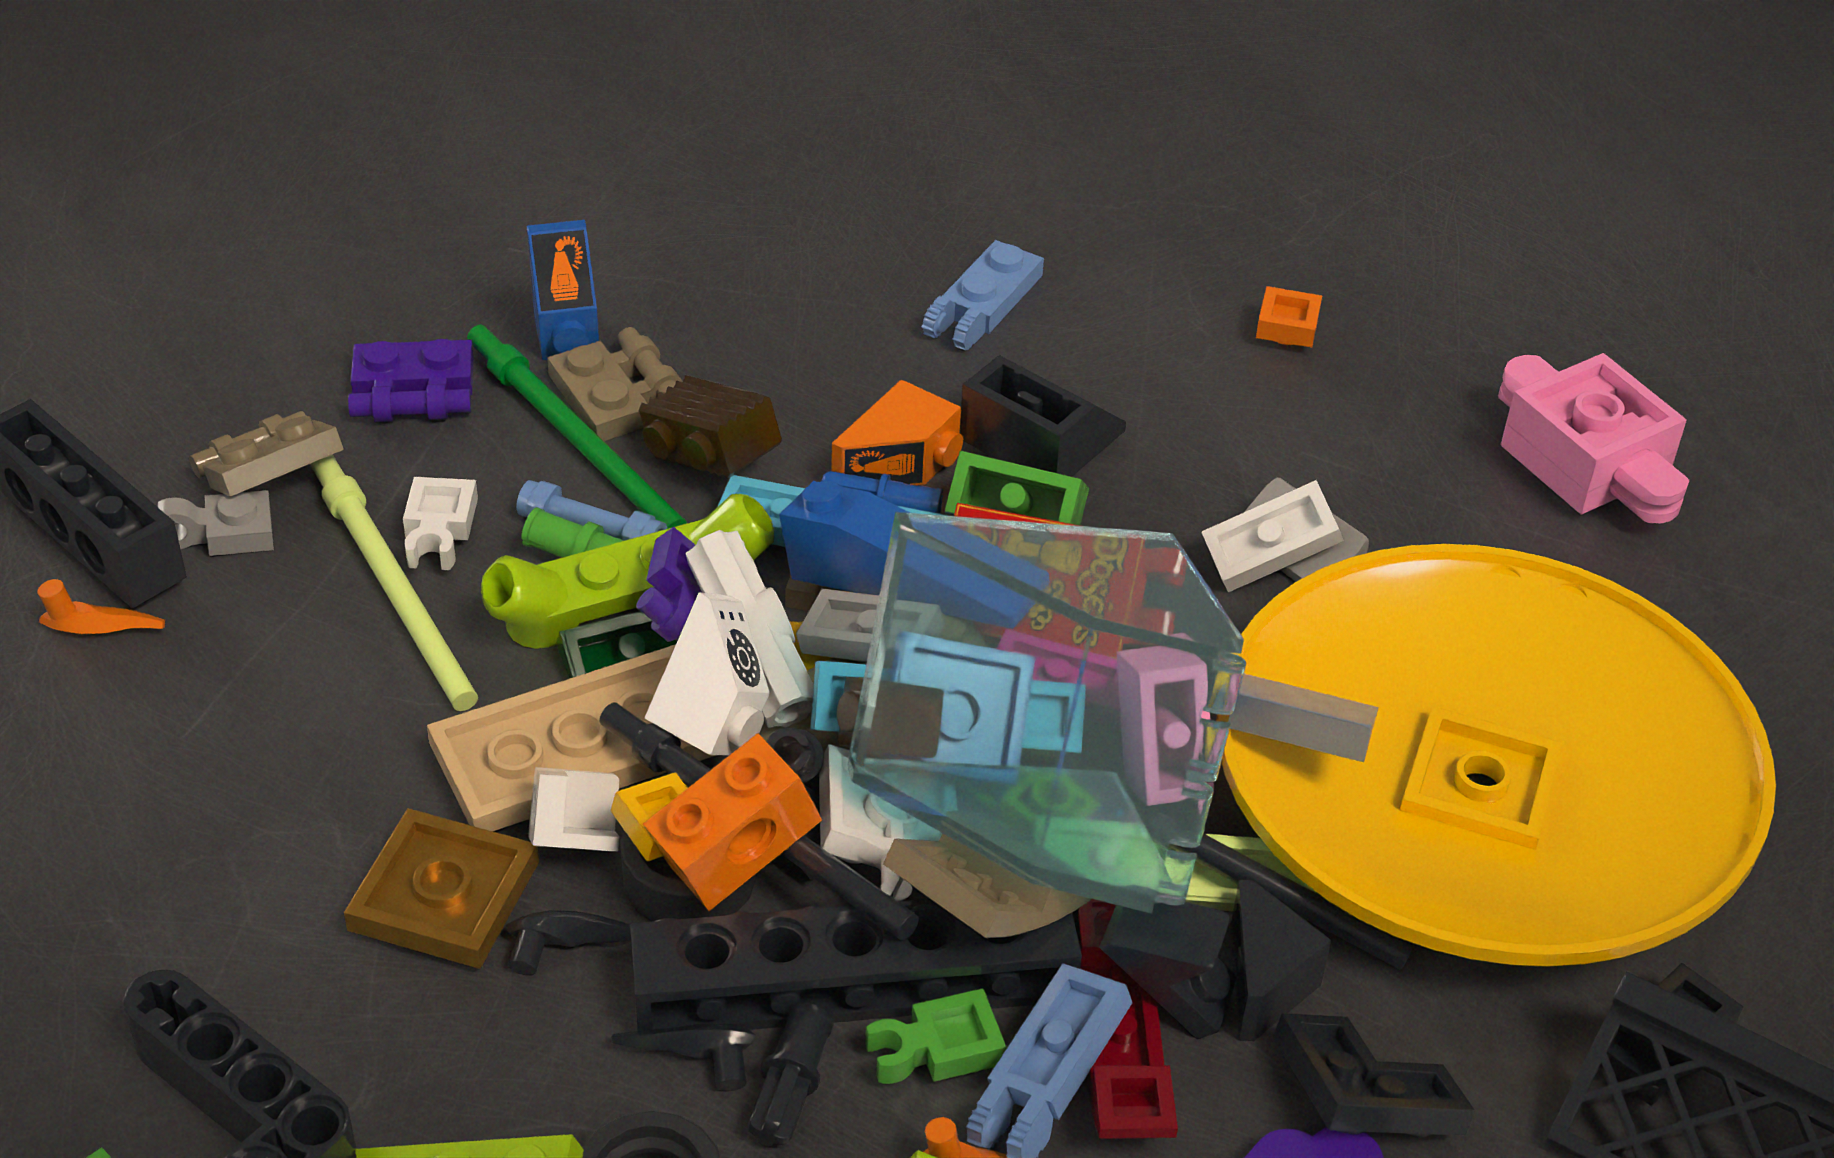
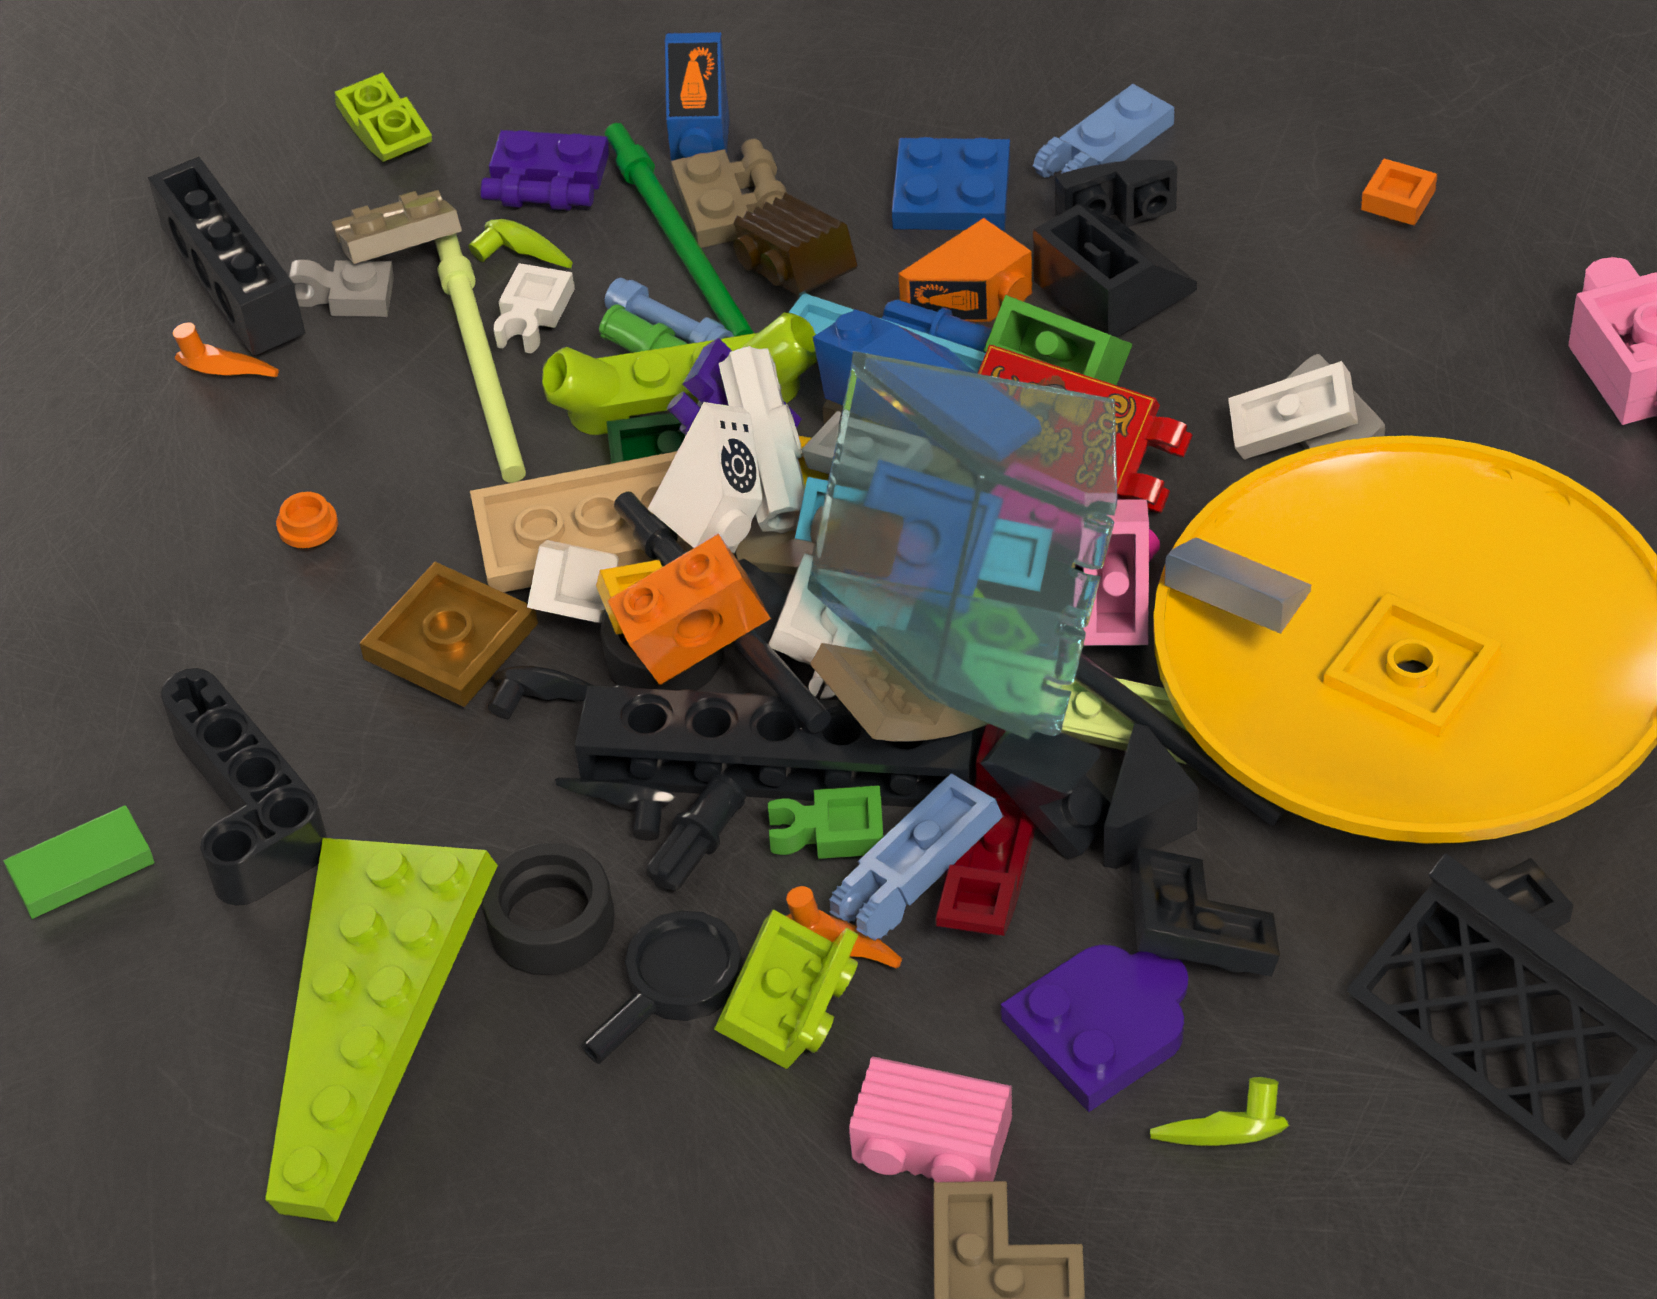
camera: 20 degrees right, 5 degrees up
(215, 345) = (381, 118): none -> lime slope
(241, 782) = (306, 520): none -> orange plate
(403, 452) = (518, 238): none -> lime bar
(799, 750) = (769, 558): black axle -> none
(843, 352) = (950, 183): none -> blue plate
(1029, 338) = (1125, 188): none -> black slope

